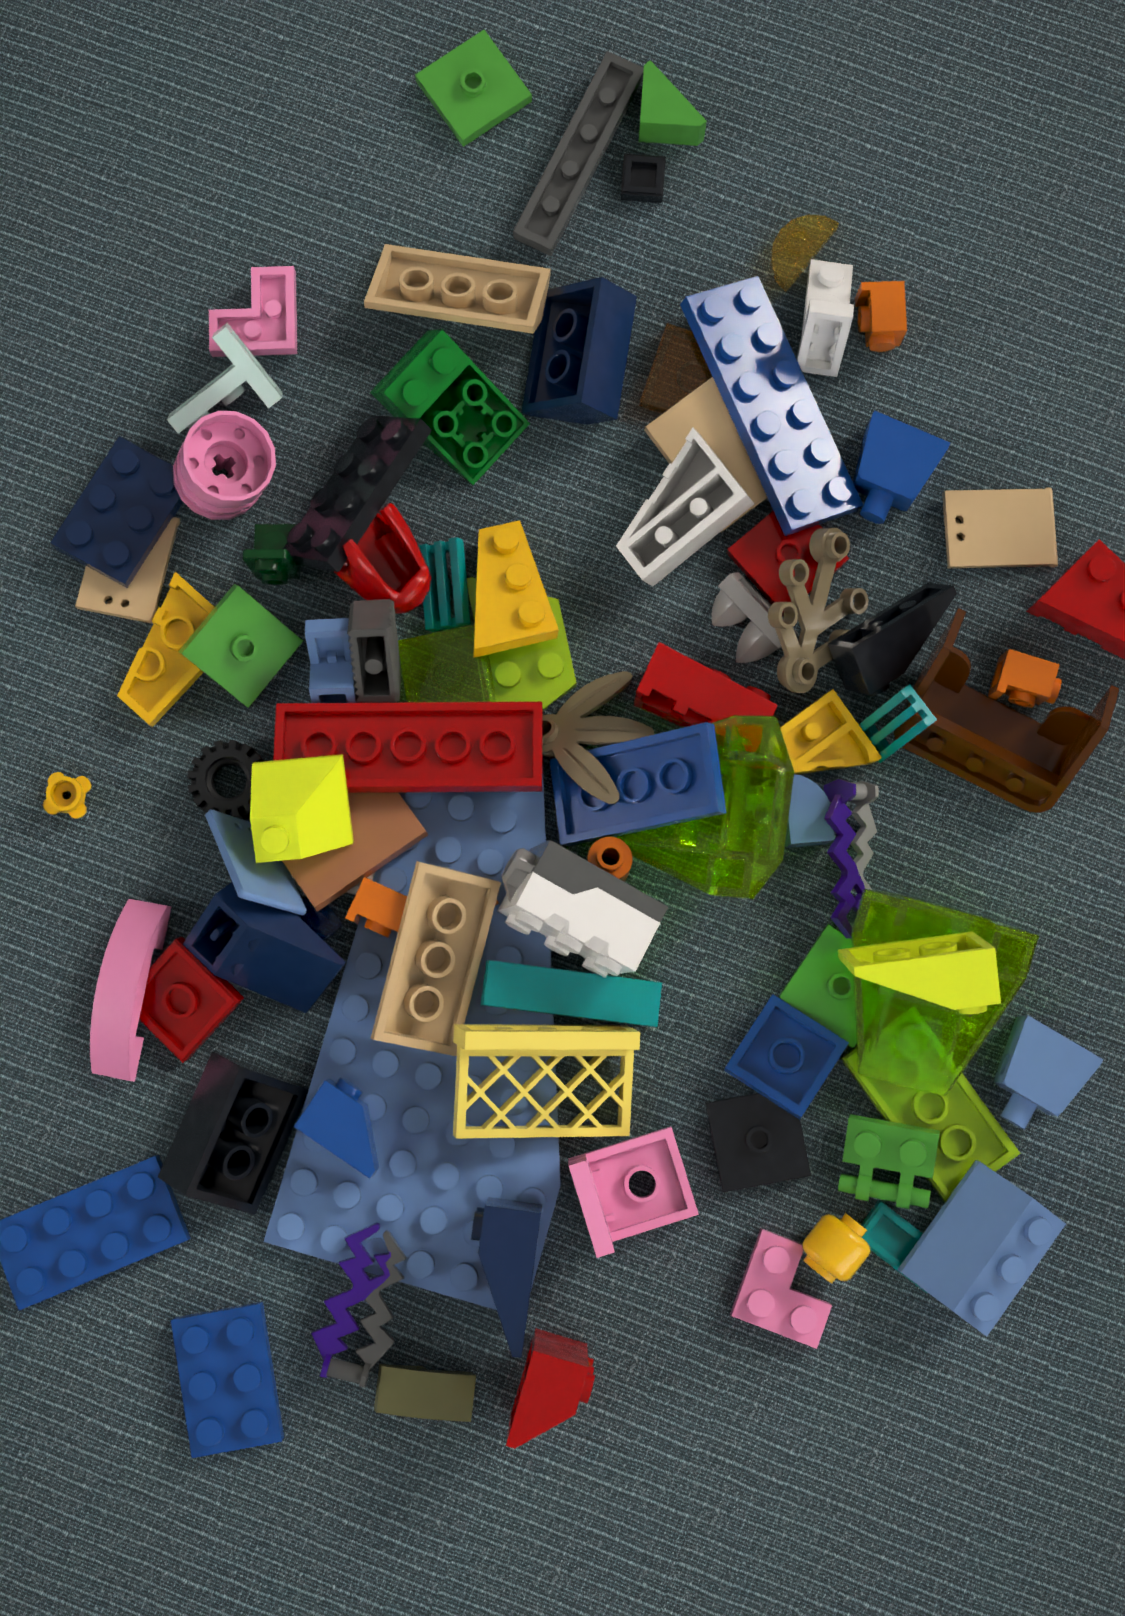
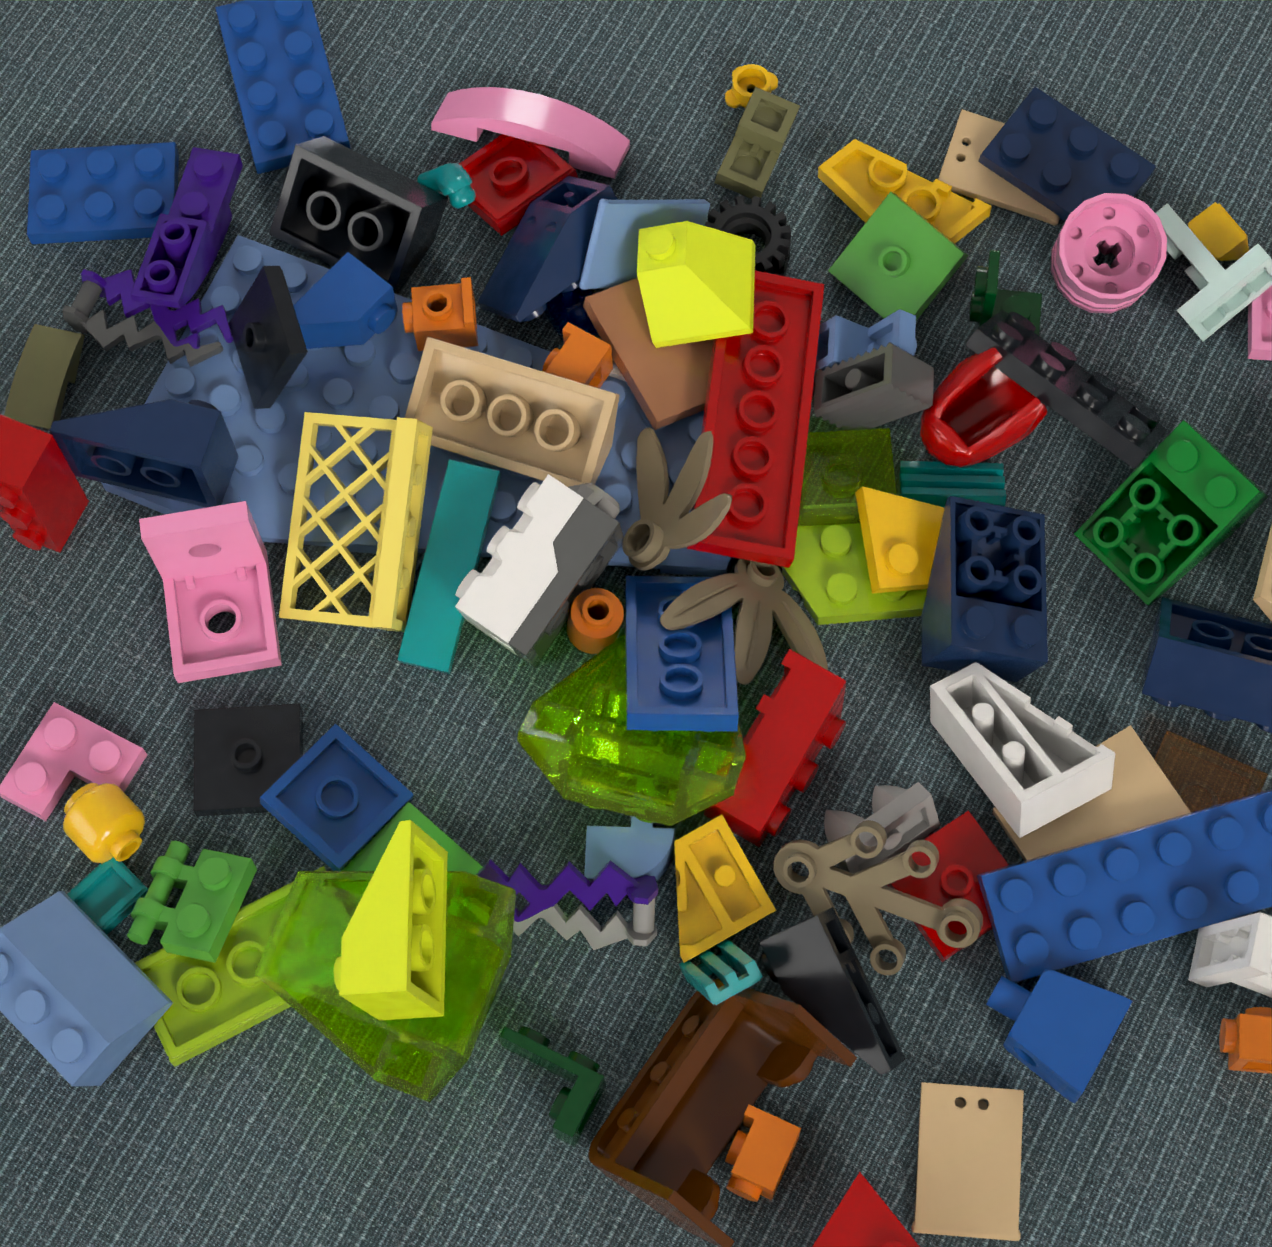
camera: 100 degrees right, 15 degrees down
(126, 782) = (757, 144): none -> olive slope
(186, 379) = (1219, 233): none -> yellow slope
(196, 1050) = (451, 181): none -> teal arm
(271, 1284) = (191, 233): none -> dark purple slope
(348, 1018) = (442, 313): none -> orange brick
(386, 1184) = (267, 337): none -> black plate
(515, 812) = (666, 518): none -> dark tan plant
(549, 543) = (987, 591): none -> dark blue slope
(1009, 828) = (572, 1106): none -> dark green bracket
(1041, 1071) = (265, 1099): medium blue torso -> none

